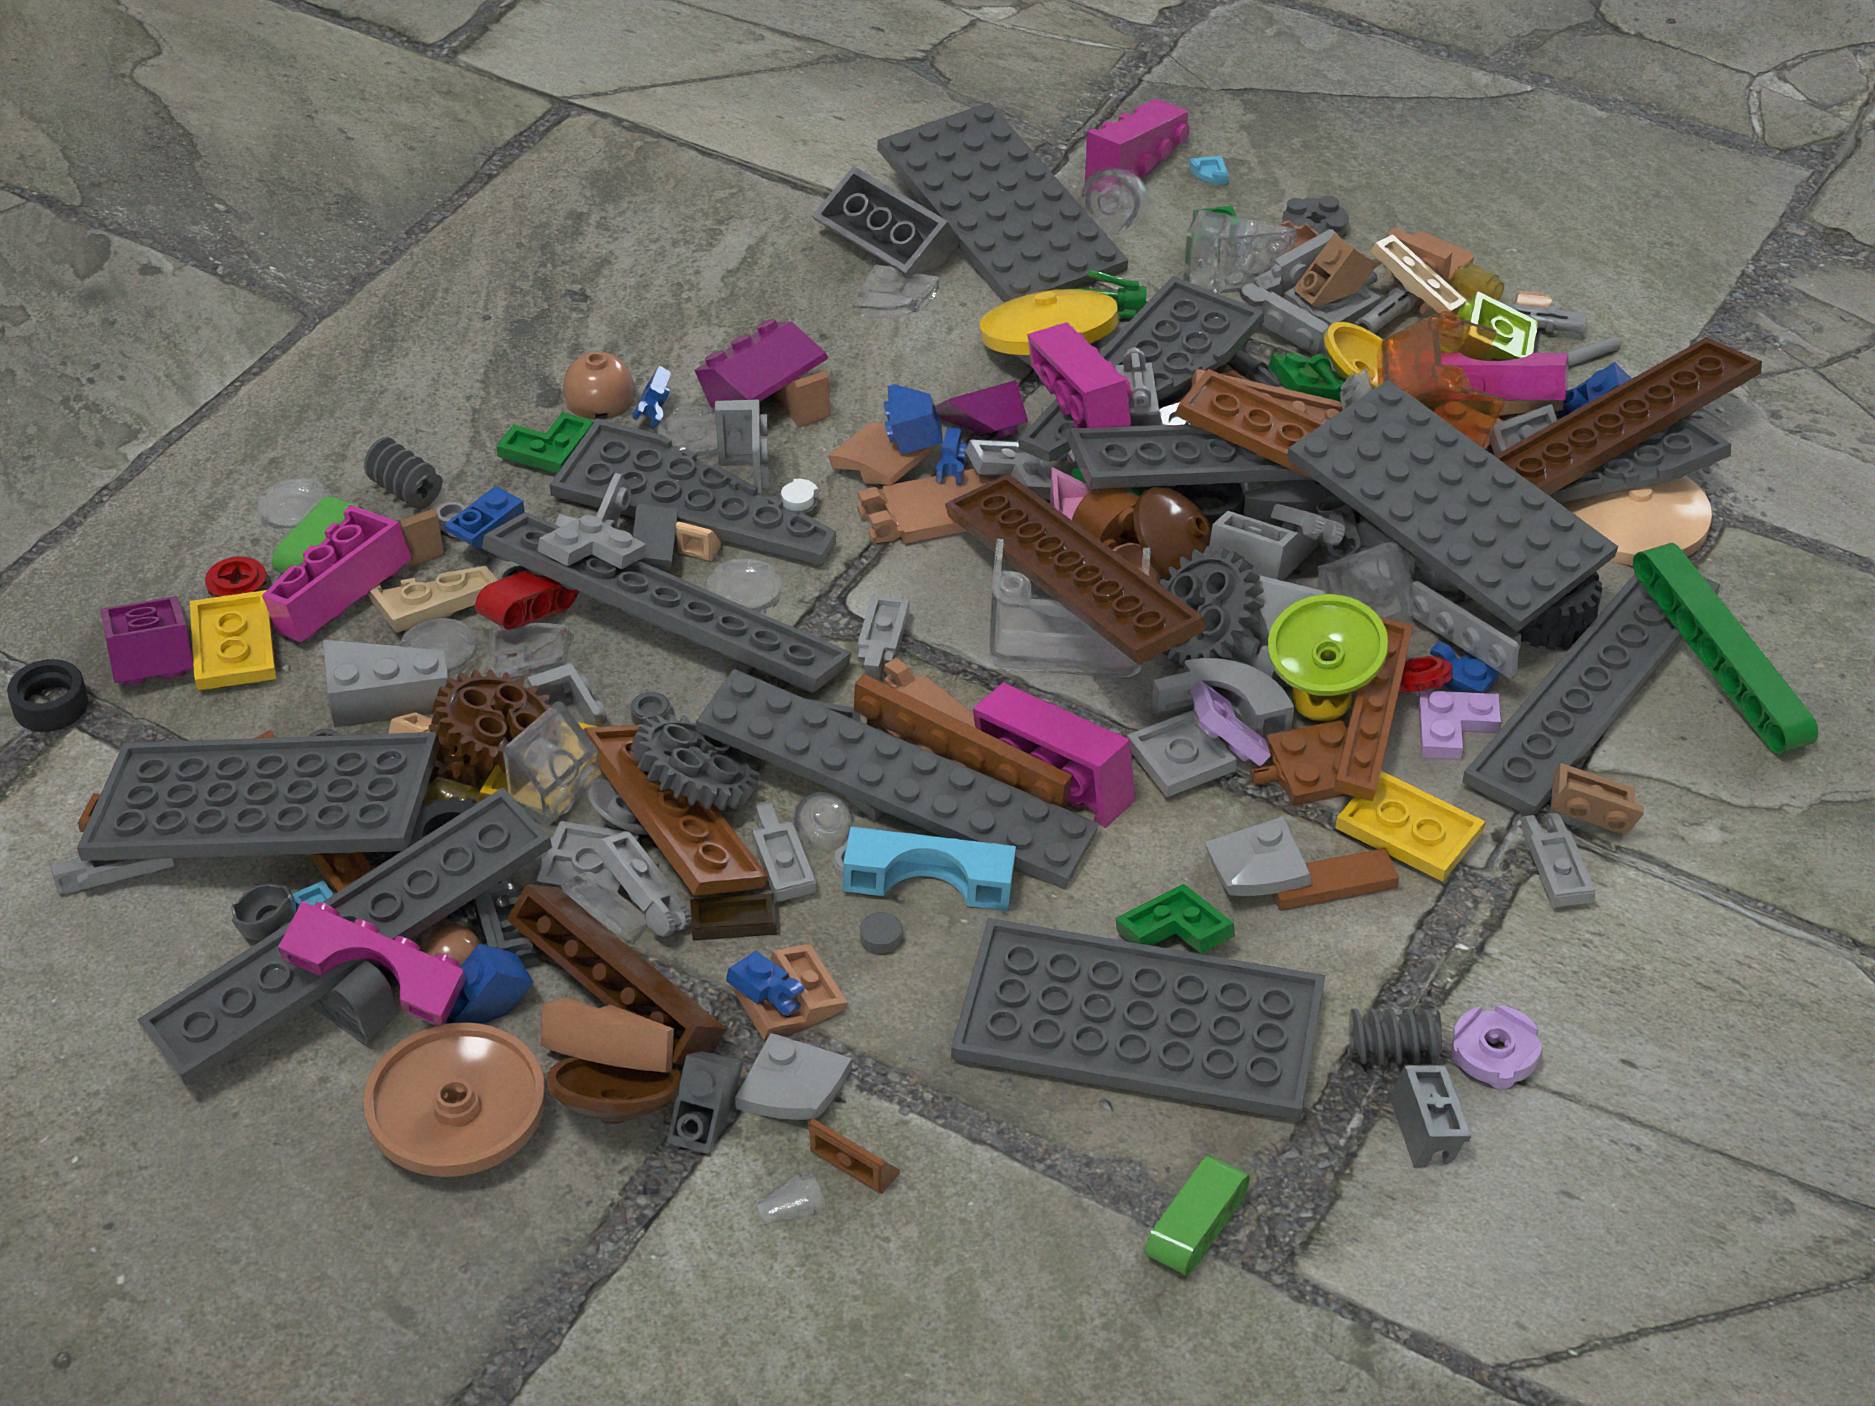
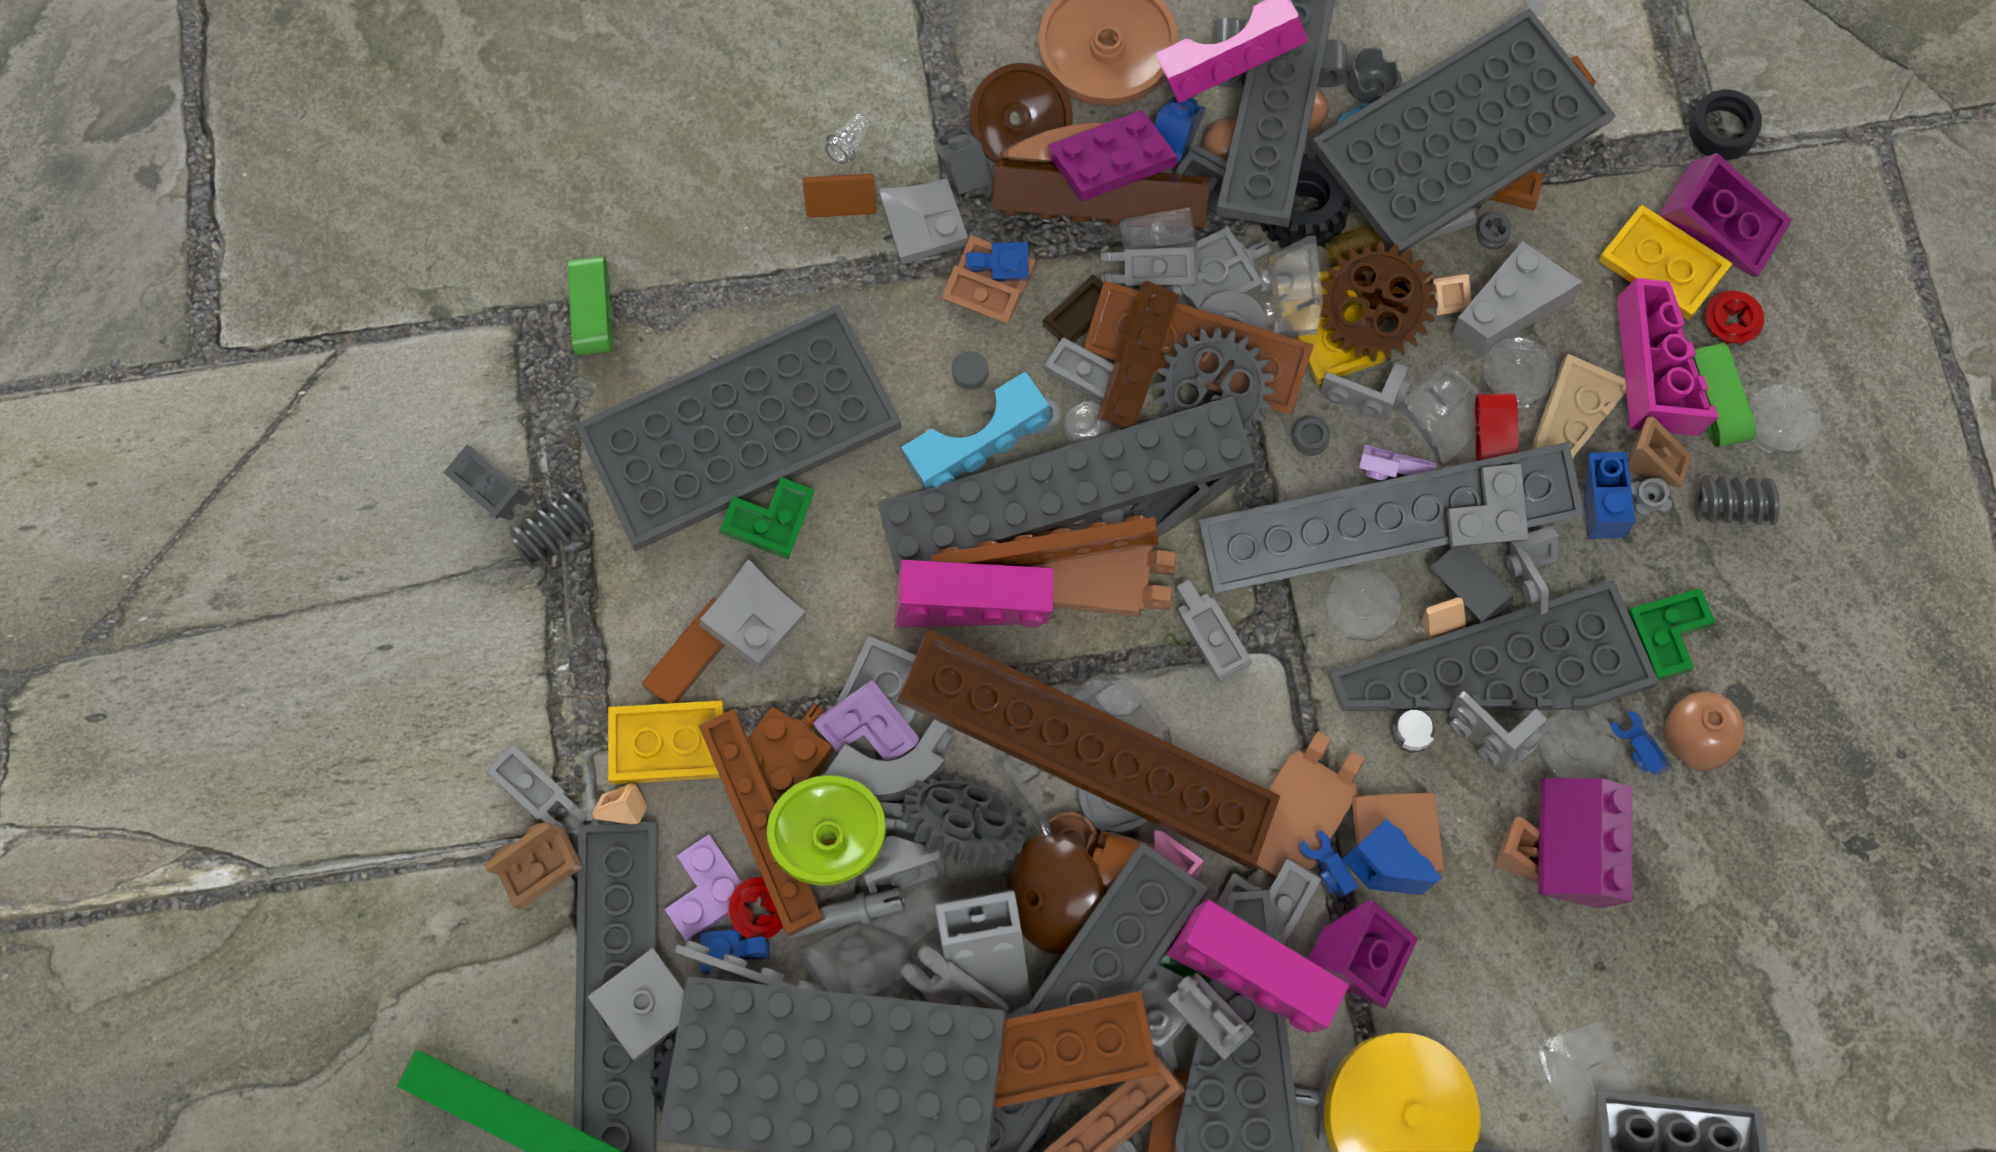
camera: 145 degrees right, 25 degrees up
(581, 962) = (1112, 155): none -> magenta plate
(618, 638) = (1384, 463): none -> lavender plate
(726, 809) = (1137, 356): none -> reddish brown plate
(1489, 803) = (621, 805): none -> light nougat slope
(1493, 1065) = (494, 597): lavender plate -> none
(1566, 661) = (641, 1004): none -> light grey plate

